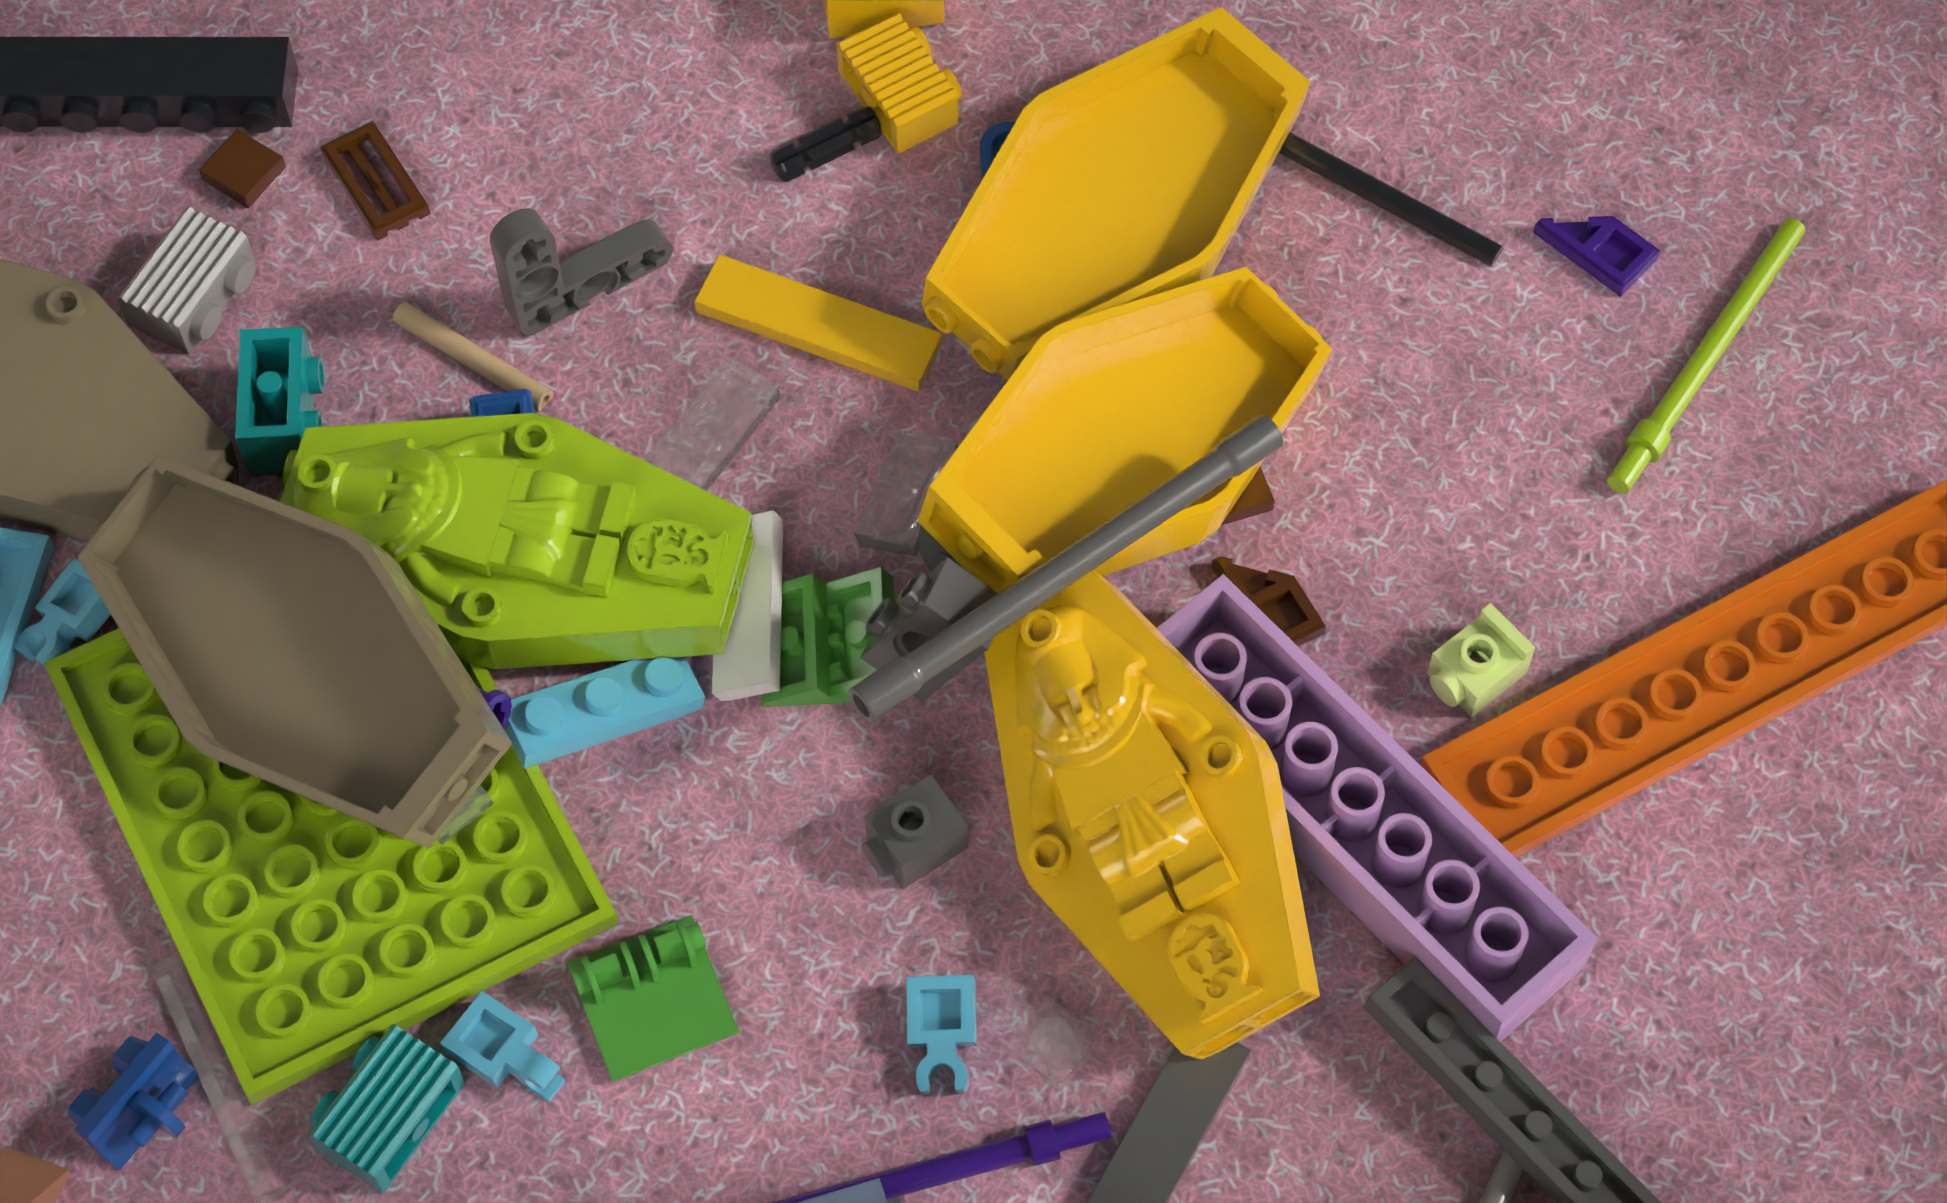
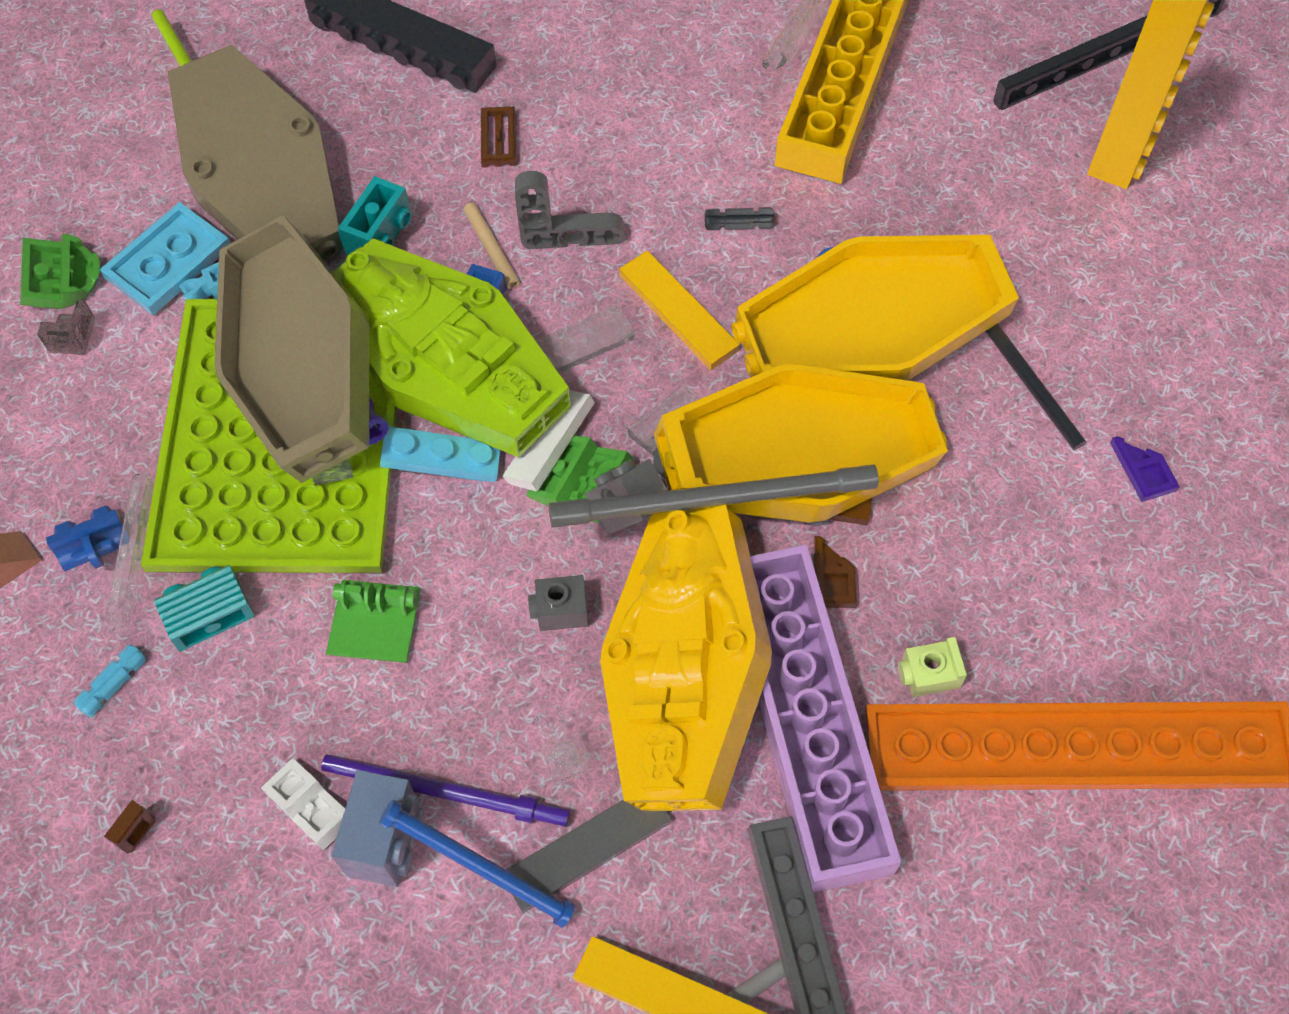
camera: 30 degrees right, 0 degrees up
(188, 280) = (374, 144): light grey brick -> none
(242, 168) = (437, 102): reddish brown tile -> none
(498, 1042) = (278, 604): medium azure plate -> none
(897, 78) = (795, 203): yellow brick -> none
(941, 1018) = (513, 712): medium azure plate -> none
(1652, 434) = (1113, 589): lime bar -> none

